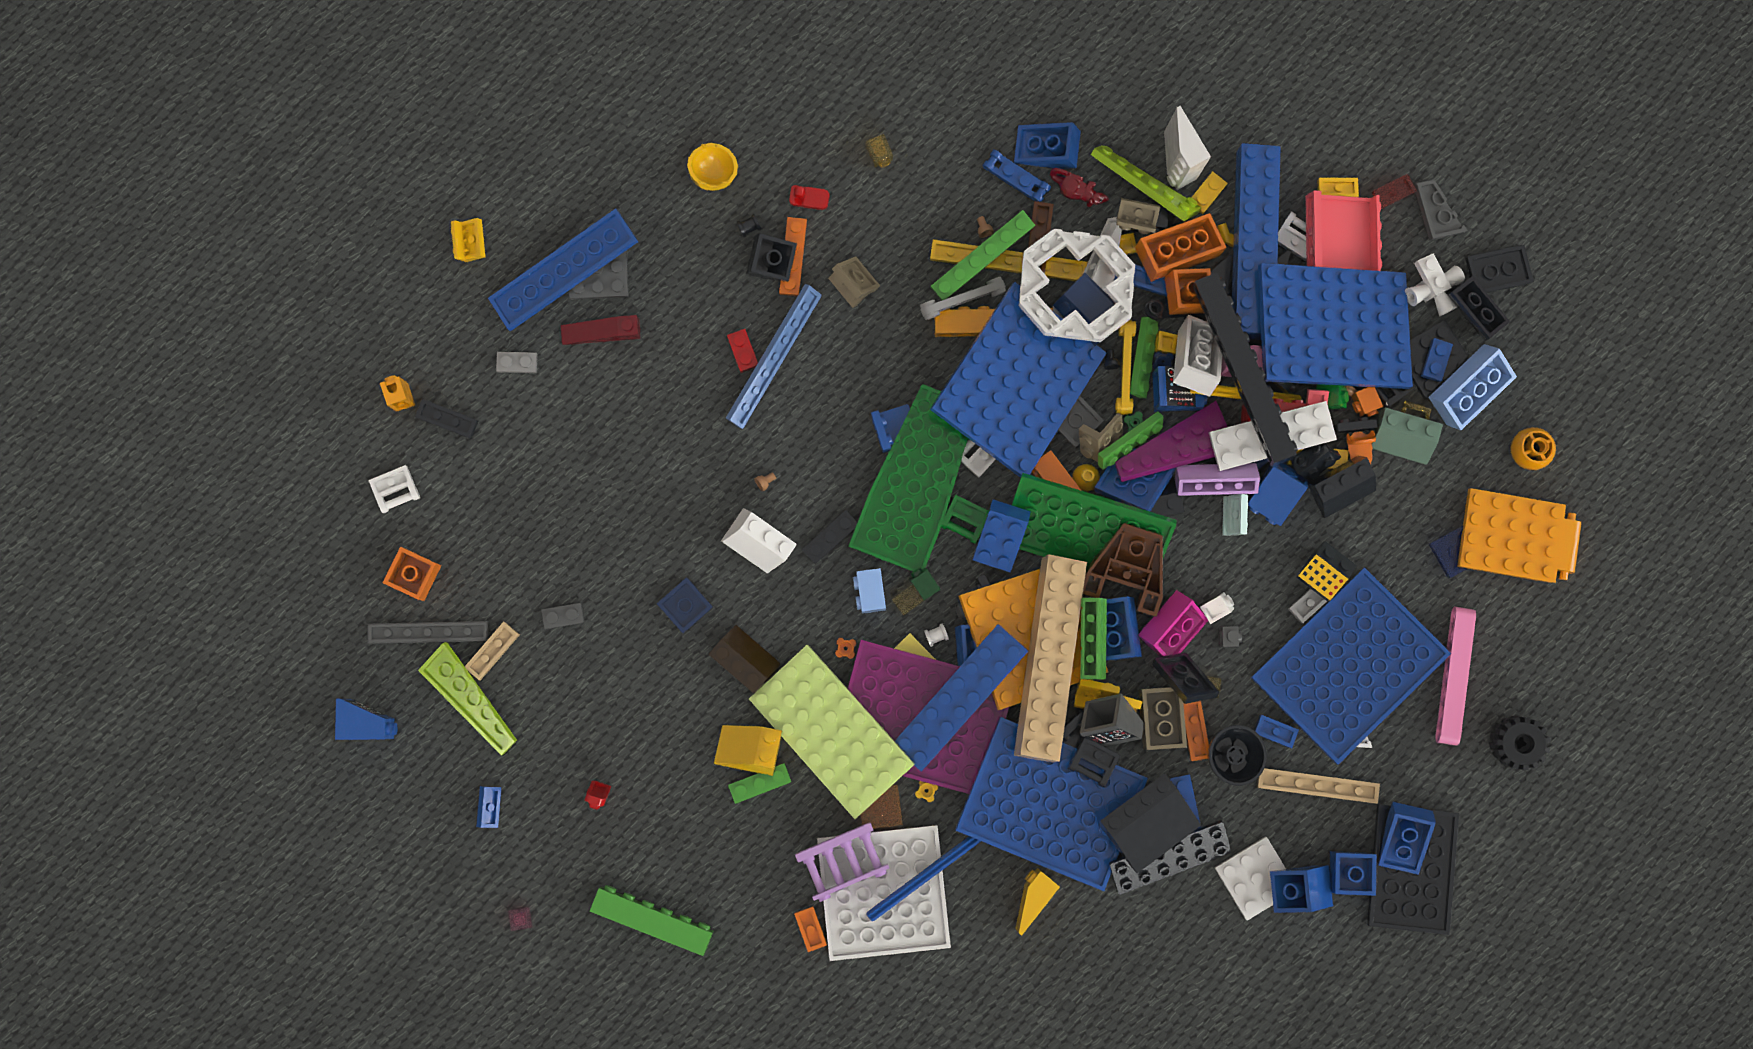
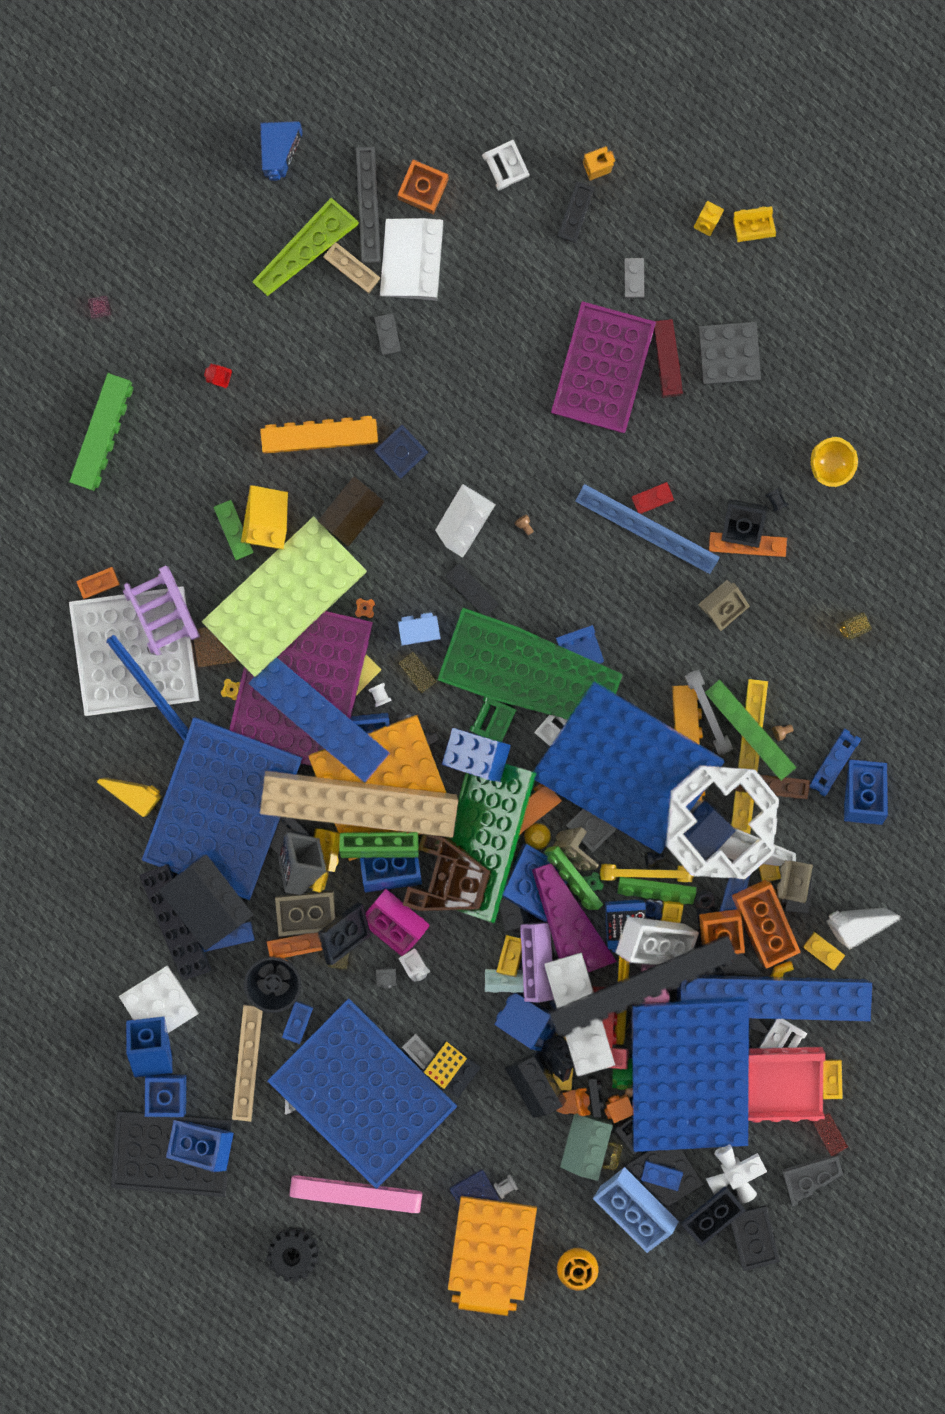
camera: 95 degrees right, 5 degrees up
(460, 285) = (708, 218): none -> yellow bracket
(485, 588) = (411, 258): none -> white slope
(488, 807) = (203, 272): plate -> none
(563, 269) = (726, 319): blue plate -> none
(607, 396) = (603, 367): none -> magenta plate
(665, 690) = (319, 436): none -> light orange brick
(809, 197) = (807, 558): red piece -> none
(924, 583) = (428, 681): dark green brick -> none
(1075, 189) = (823, 819): dark red animal -> none
(1098, 756) = (268, 851): black plate -> none
(1162, 194) = (823, 899): lime wing -> none
(1210, 507) = (510, 956): none -> yellow plate
(1447, 520) = (505, 1186): none -> light grey bush

